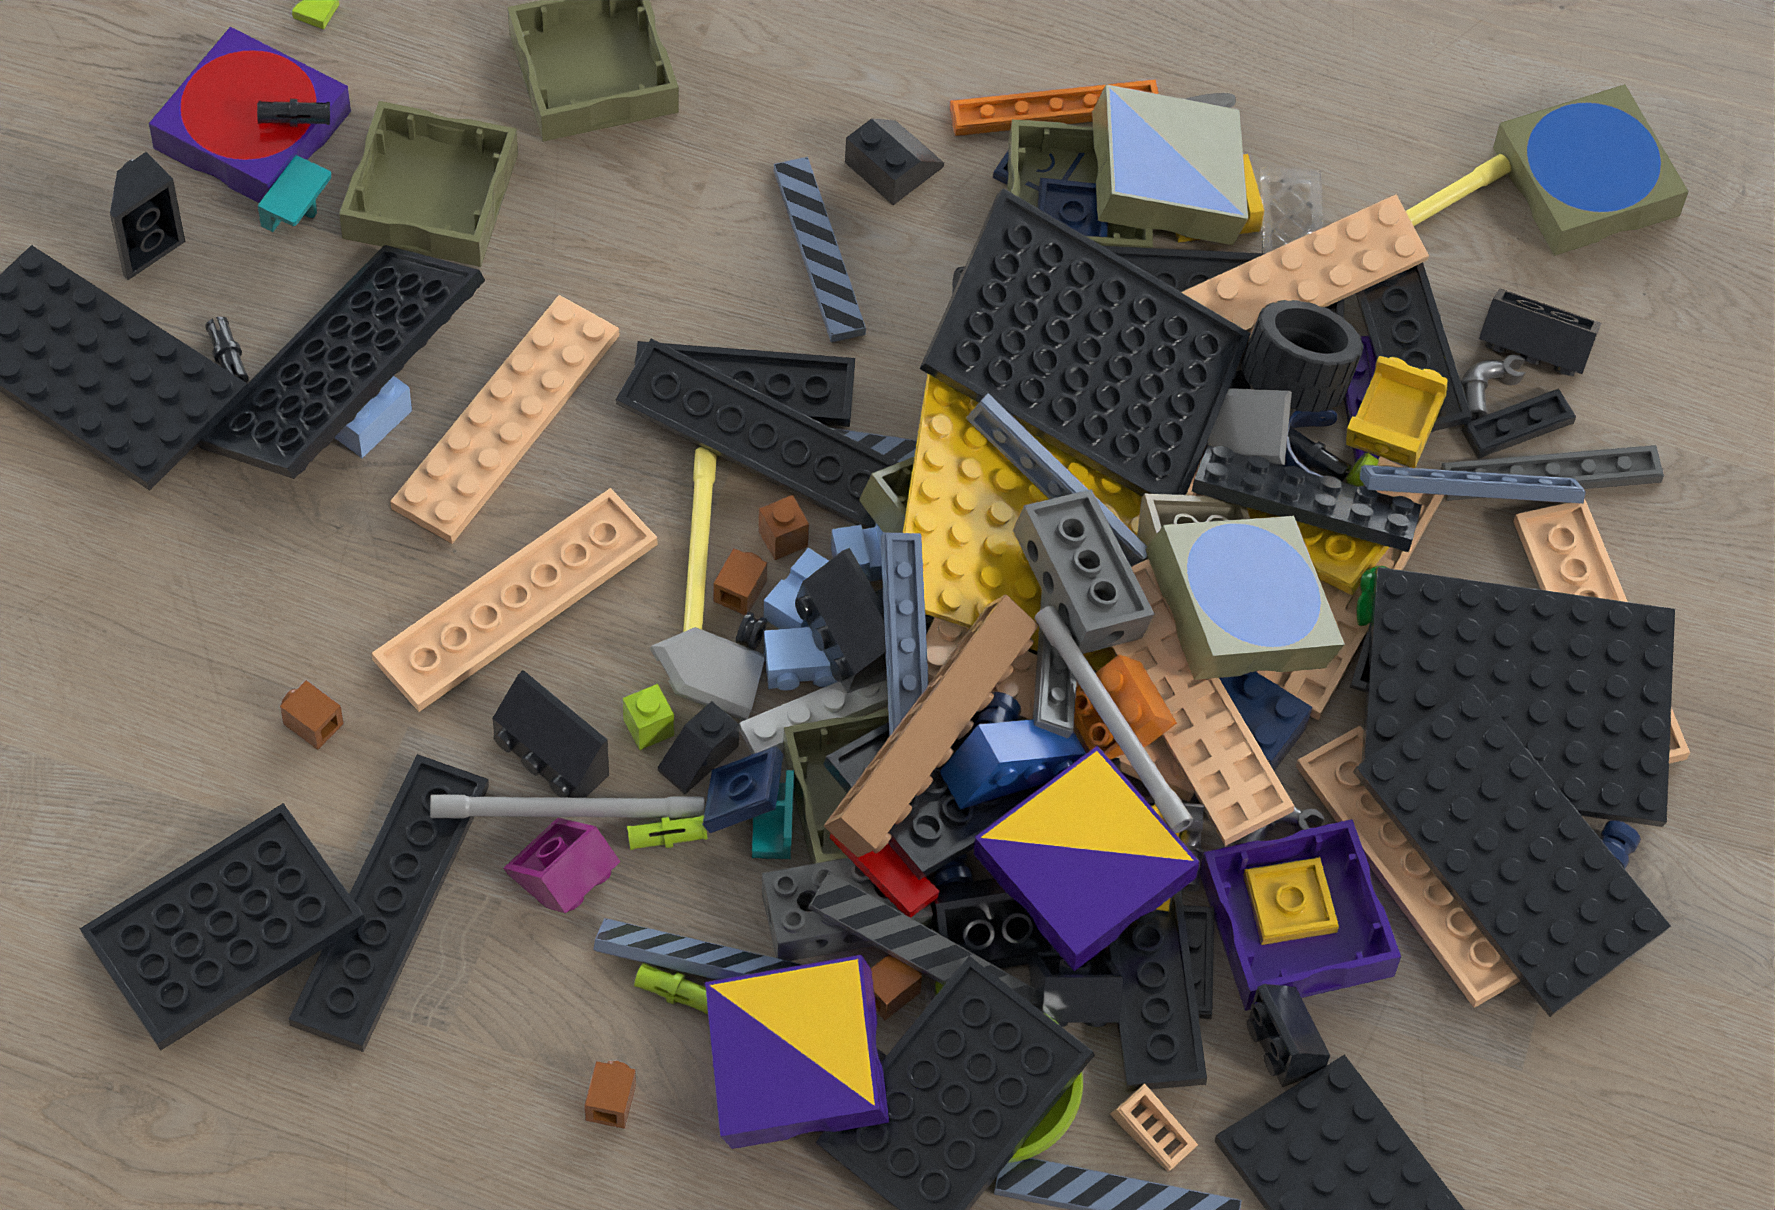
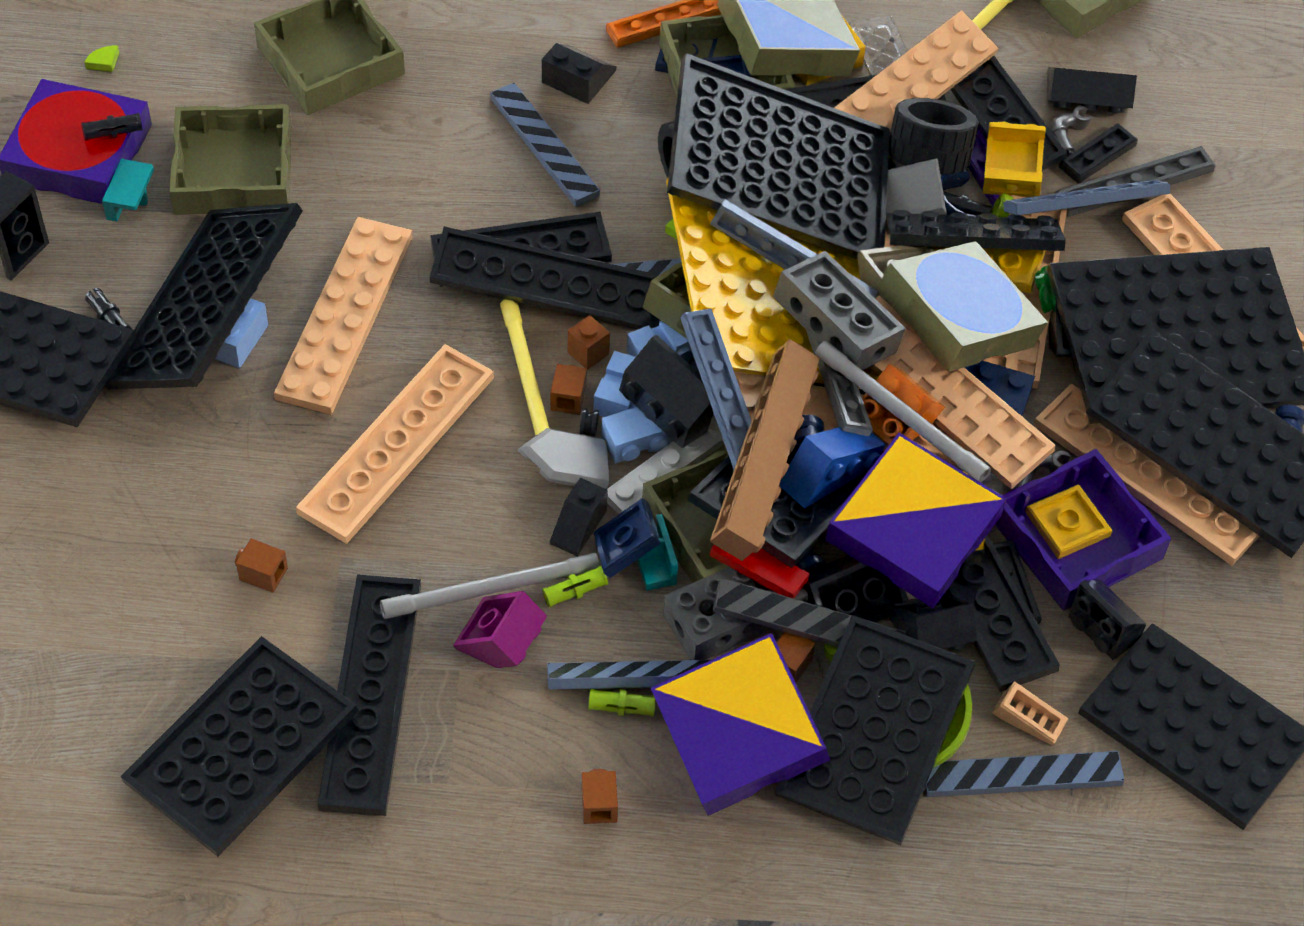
camera: 15 degrees left, 5 degrees down
(551, 739) = (461, 535): black slope -> none
(648, 716) = (531, 503): lime brick -> none

